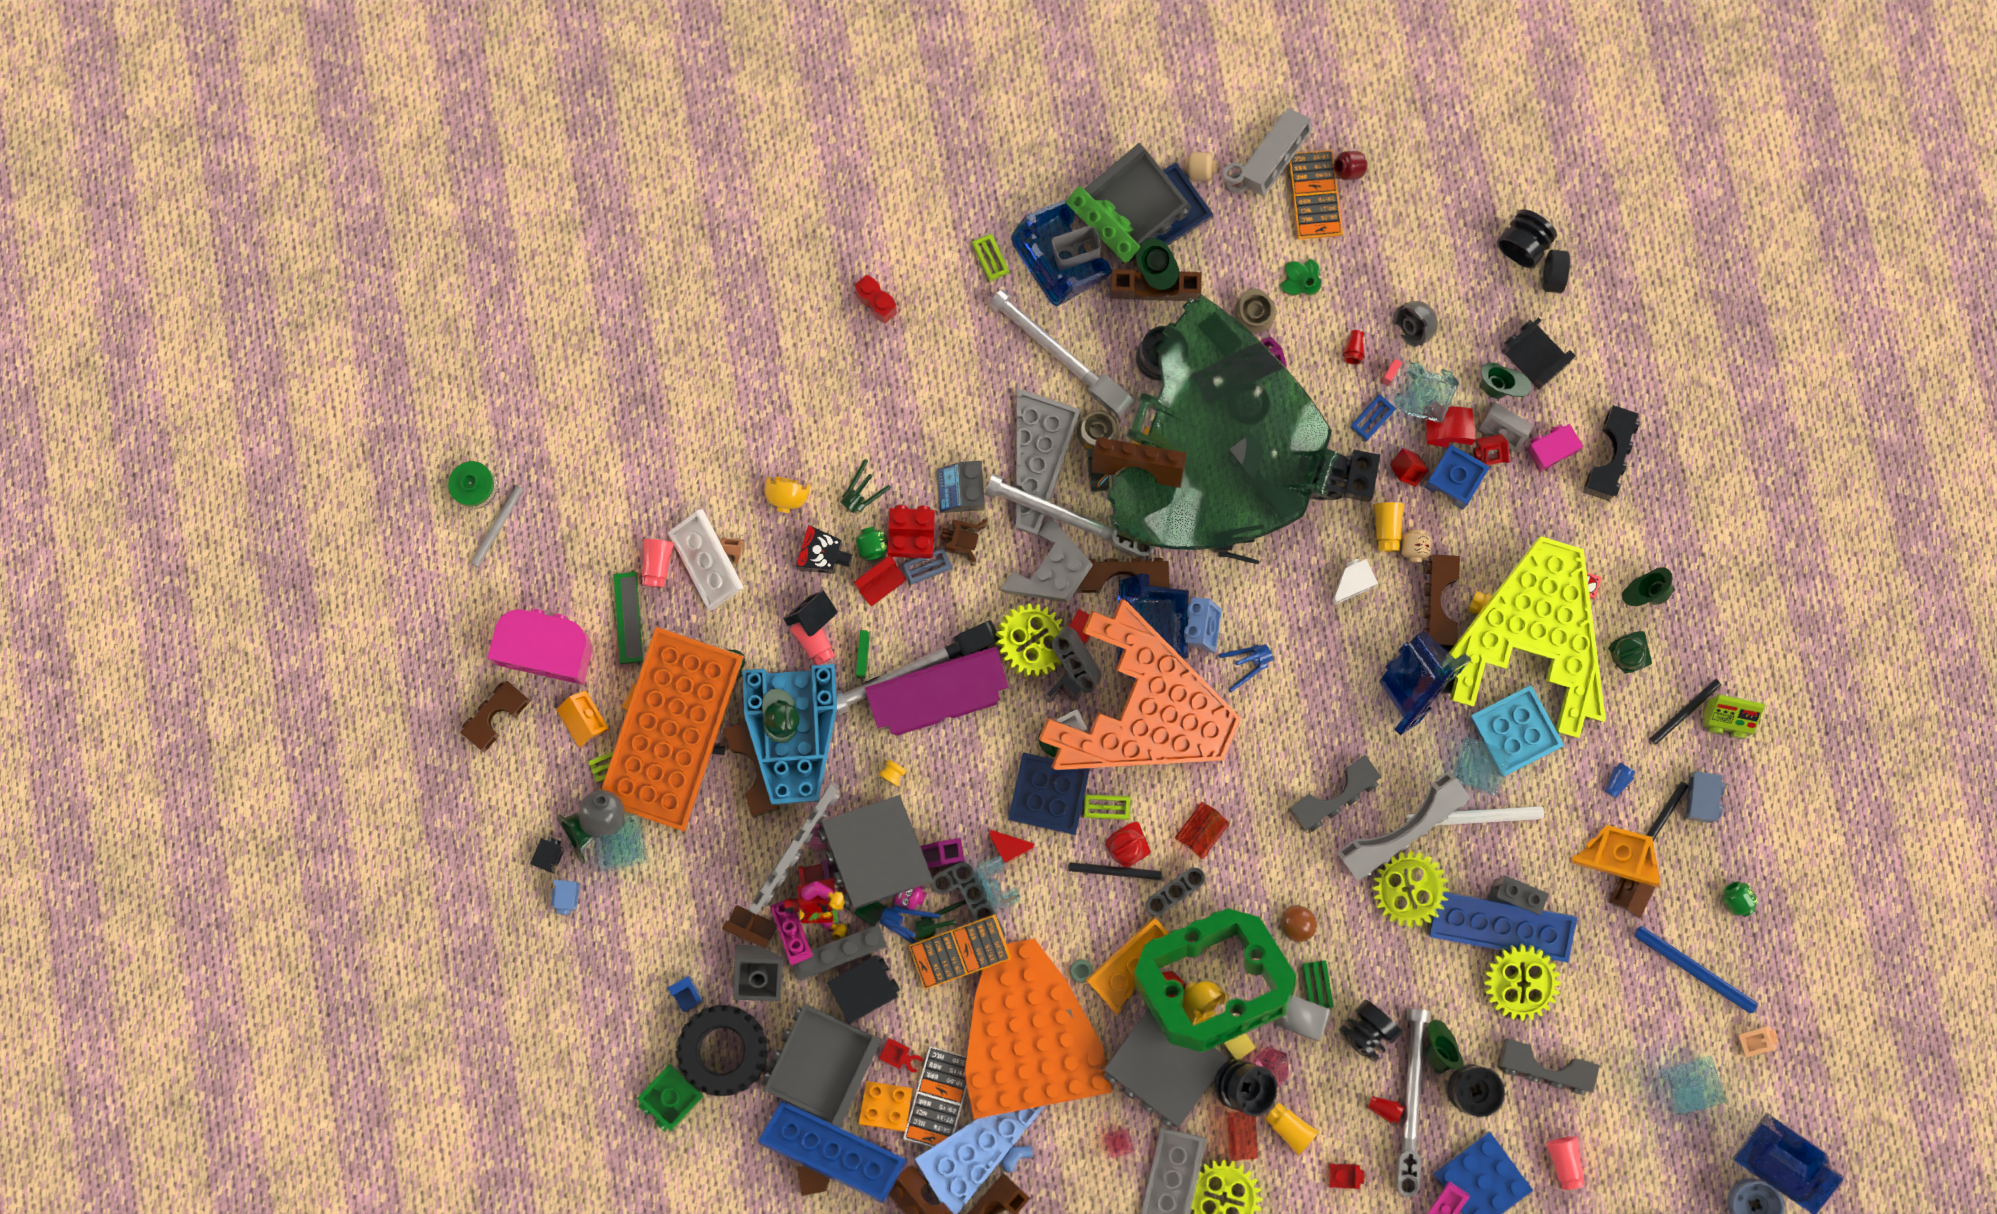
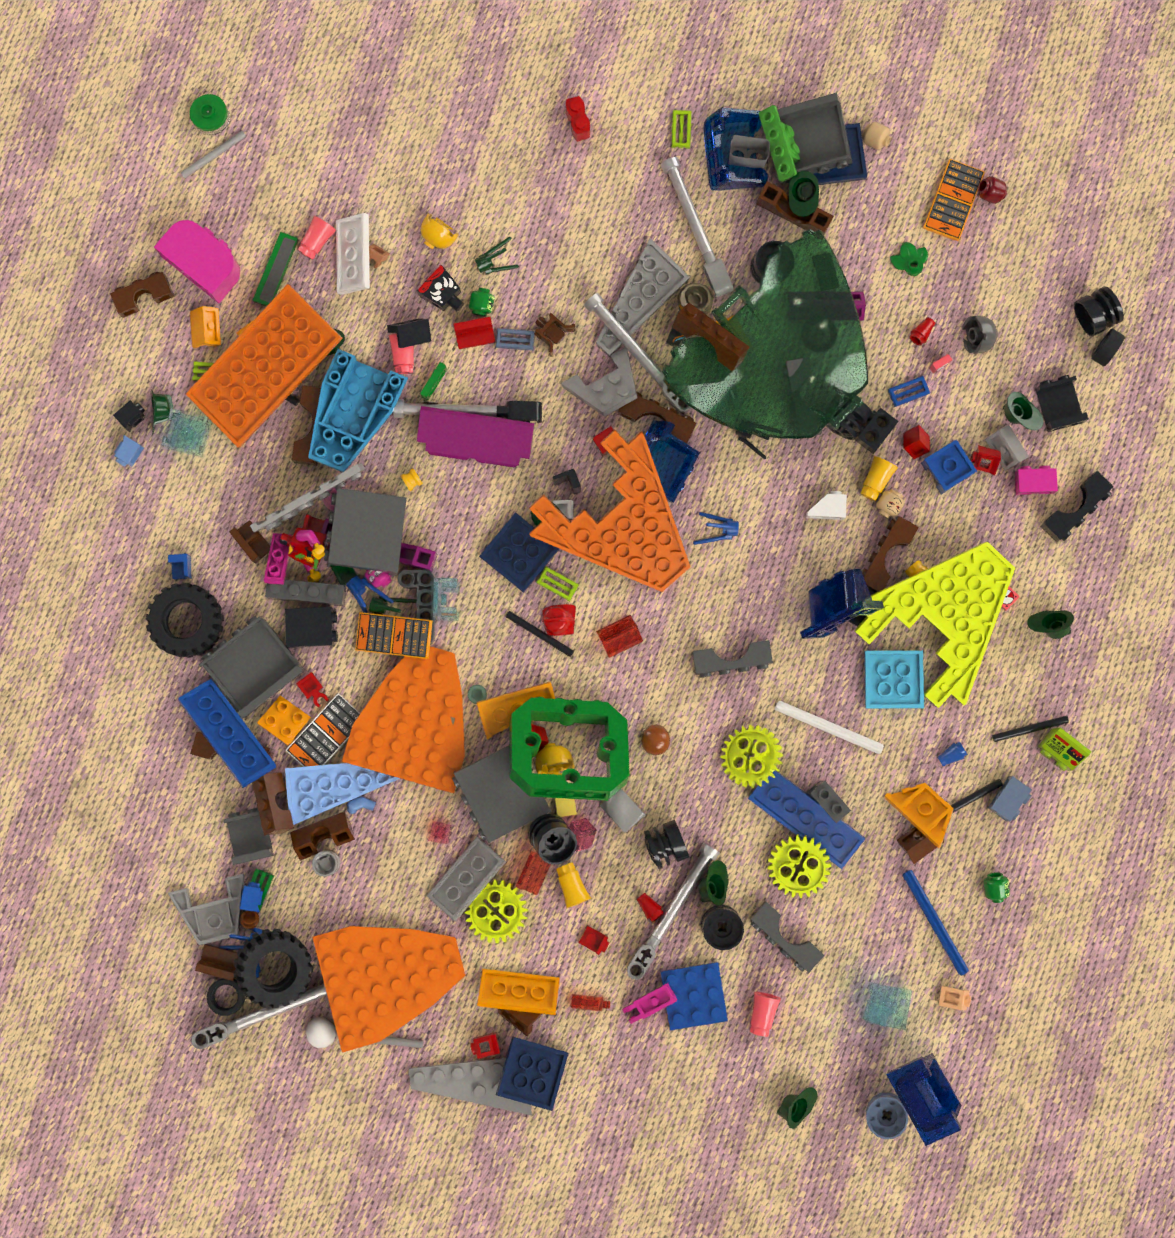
camera: 30 degrees right, 5 degrees up
(601, 813) = (181, 403): dark grey cylinder -> none
(669, 1098) = (129, 636): green plate -> none
(757, 974) = (236, 577): dark grey slope -> none
(779, 715) = (348, 395): dark green piece -> none
(911, 532) = (515, 307): red plate -> none
(961, 487) = (570, 292): dark grey slope -> none
(1009, 846) = (470, 577): red slope -> none
(1020, 623) = (561, 415): neon yellow gear -> none
(1076, 649) = (592, 454): dark grey beam -> none
(1185, 887) = (584, 666): dark grey beam -> none
(1203, 624) = (698, 483): medium blue plate -> none
(1259, 307) = (865, 264): dark tan hat -> none
(1272, 155) = (936, 152): light grey hinge -> none
(1323, 964) = (651, 776): green tile -> none
(1428, 393) = (959, 393): clear light blue panel -> none
(1442, 799) = (809, 701): light grey arch -> none
(1455, 427) = (963, 425): red slope -> none
(1482, 765) = (853, 692): clear light blue panel -> none
(1631, 652) = (1012, 664): dark green piece -> none

